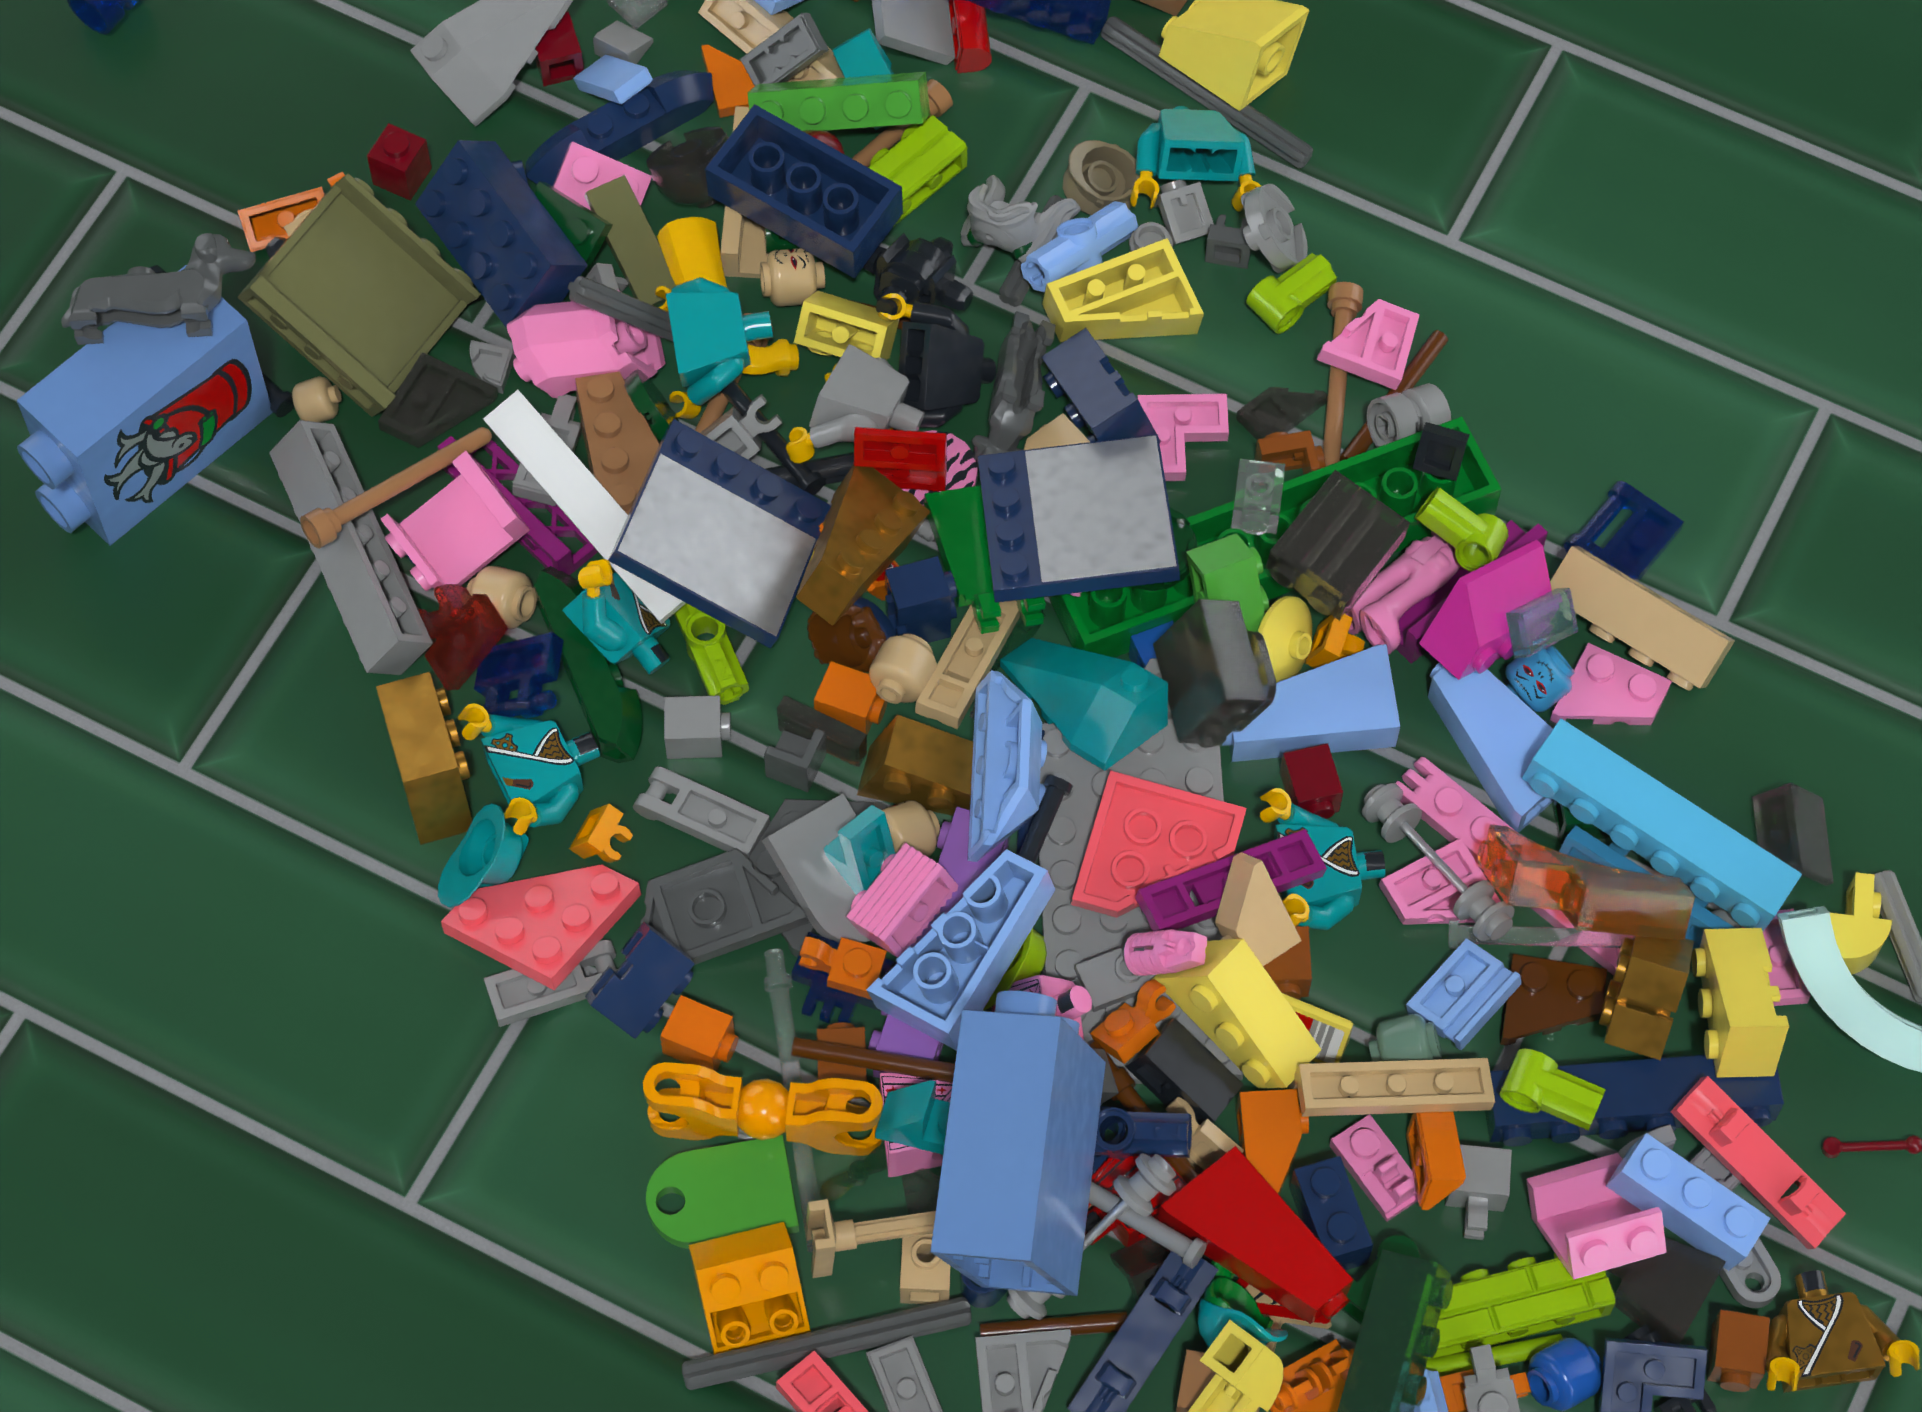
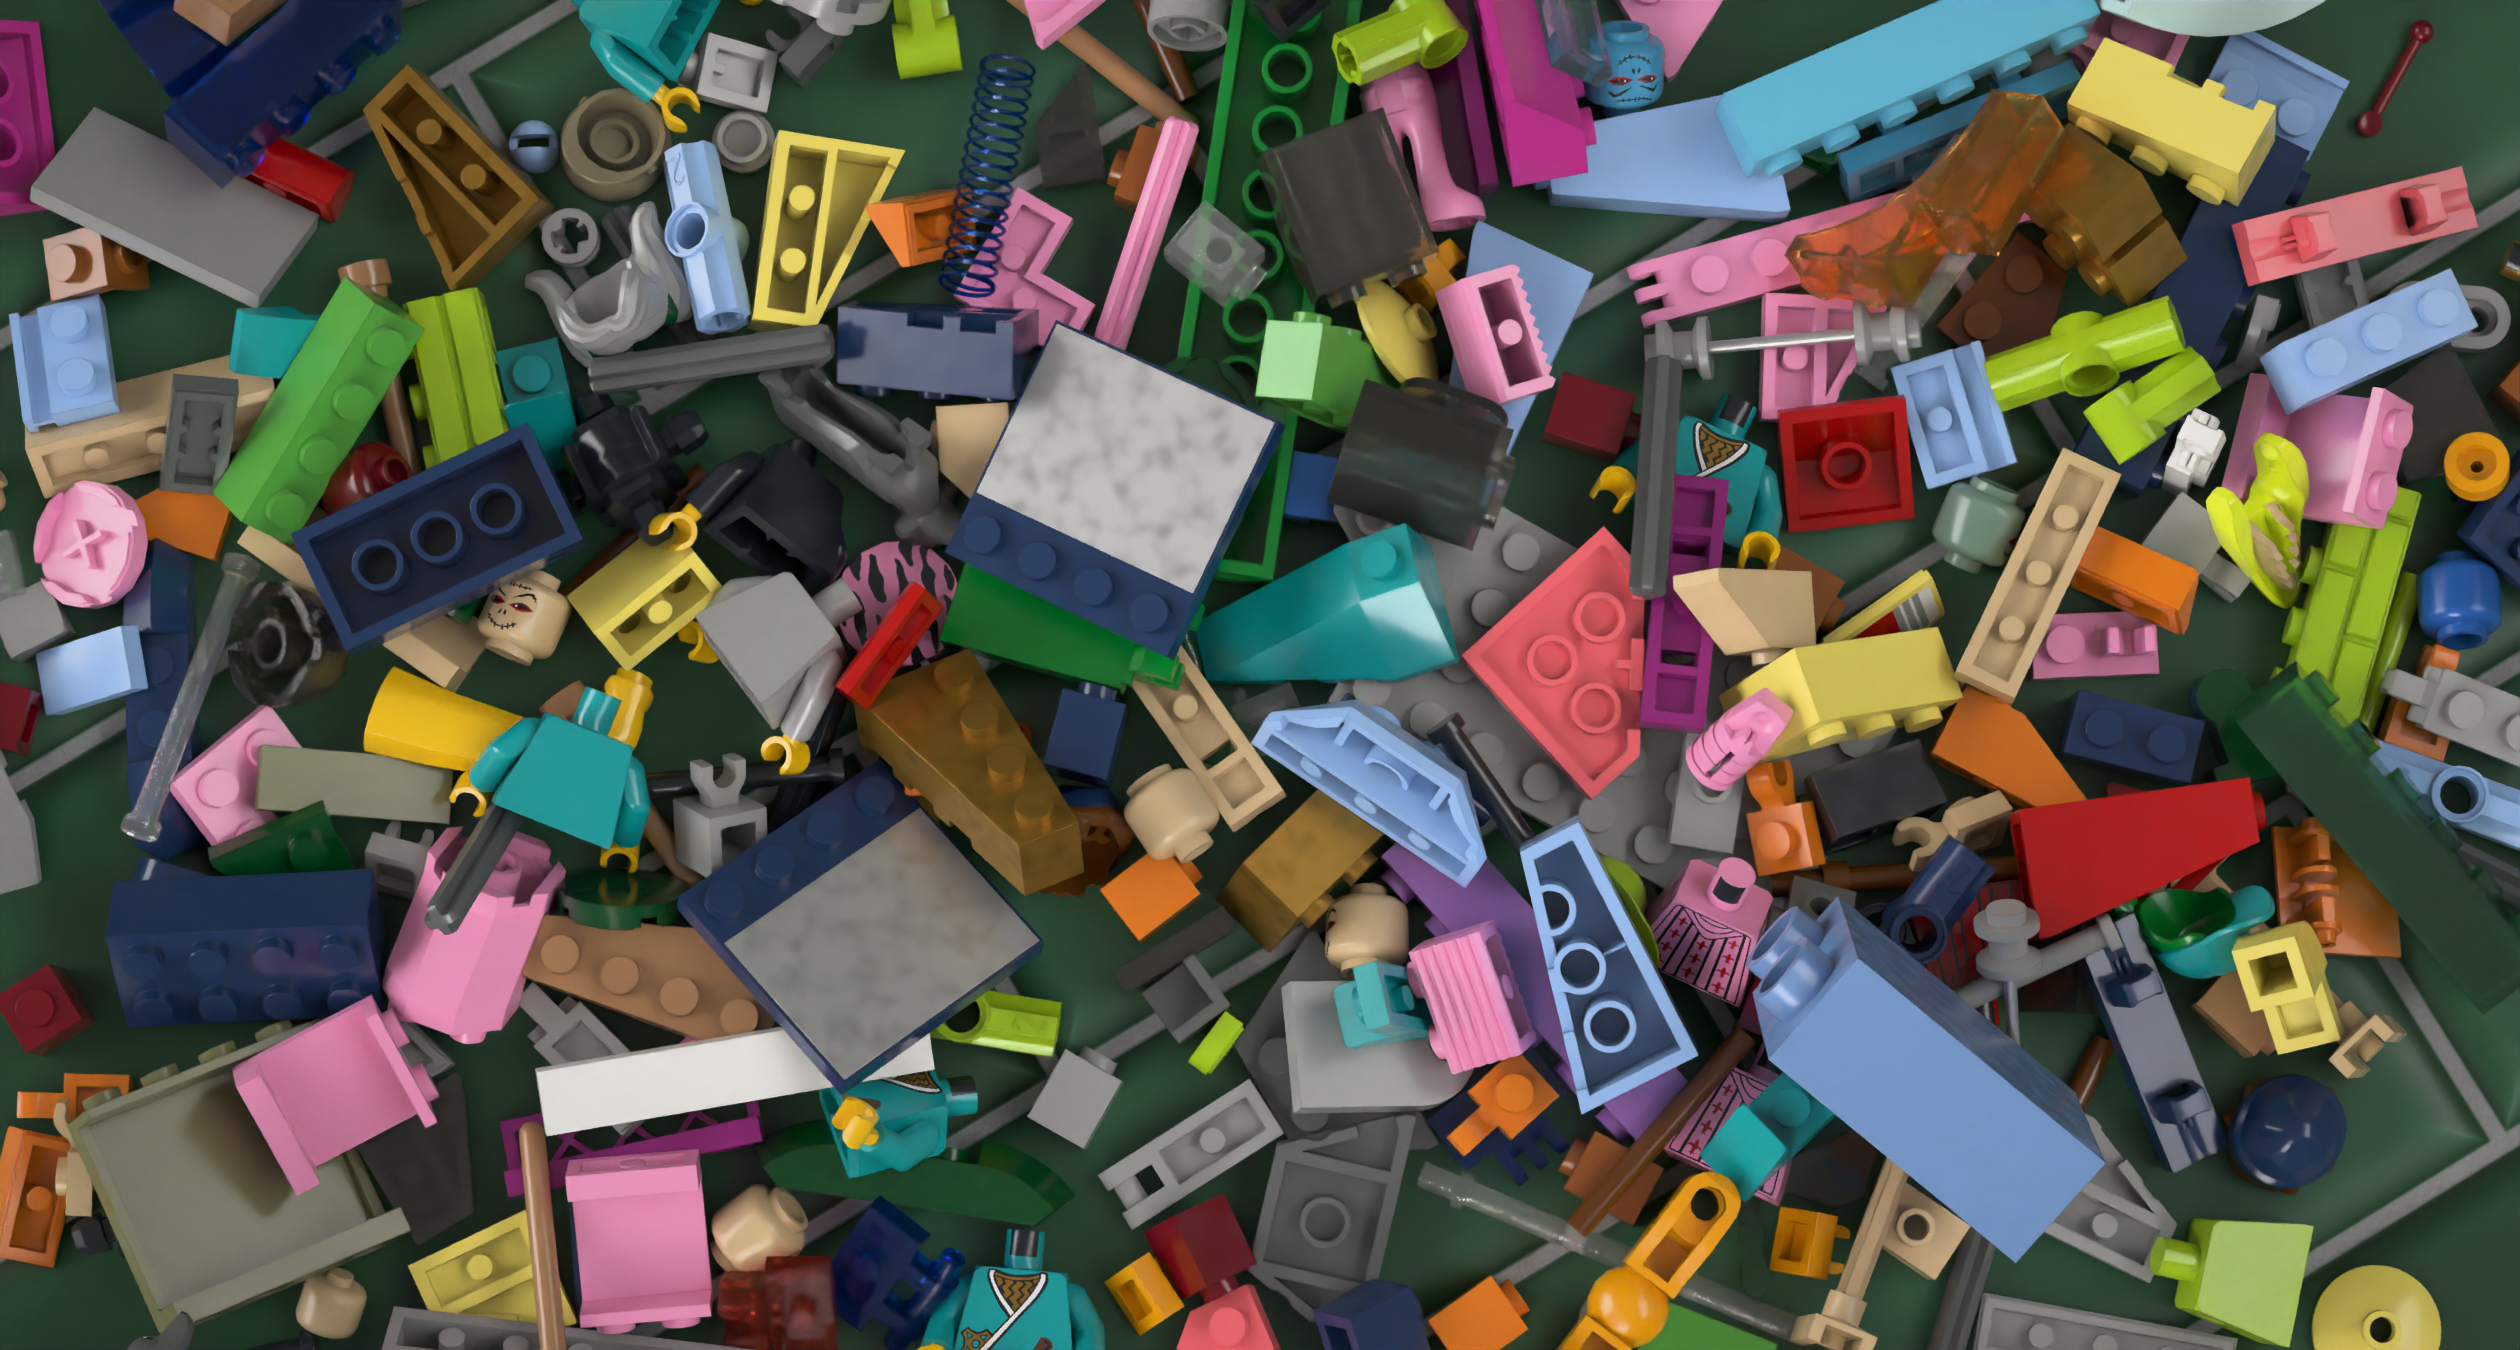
camera: 55 degrees left, 20 degrees up
(378, 459) = (486, 1275): none -> light yellow wing
(441, 316) = (334, 1088): none -> bright pink panel
(539, 134) = (143, 822): none -> clear bar
(644, 844) = (1202, 1250): none -> dark red brick
(685, 43) = (91, 545): none -> bright pink tile
(778, 785) = (1217, 1043): none -> lime tile
(874, 1202) = (1806, 1243): none -> light orange tile
(929, 217) = (540, 394): none -> teal slope
(1009, 283) = (711, 359): none -> dark grey axle
(1023, 106) = (457, 181): none -> pearl gold wedge
(1032, 177) = (556, 226): none -> light grey bush
(1064, 141) = (534, 158): none -> light blue hinge
(1168, 352) = (918, 225): none -> orange slope
(1224, 479) = (1146, 232): none -> bright pink axle
(1284, 356) = (979, 177): none -> clear blue piece
(1297, 821) = (1655, 477): none -> dark grey axle
(1318, 678) = (1495, 336): none -> bright pink brick
(1388, 947) = (1845, 463): none -> red slope
(1525, 1218) = (2267, 528): none -> neon yellow animal
(1540, 1137) = (2194, 453): none -> white hinge
(1556, 1033) = (2085, 353): none -> lime piece
(1656, 1318) = (2476, 466): none -> light orange tile
(1811, 1076) = (2299, 88): none -> light blue plate

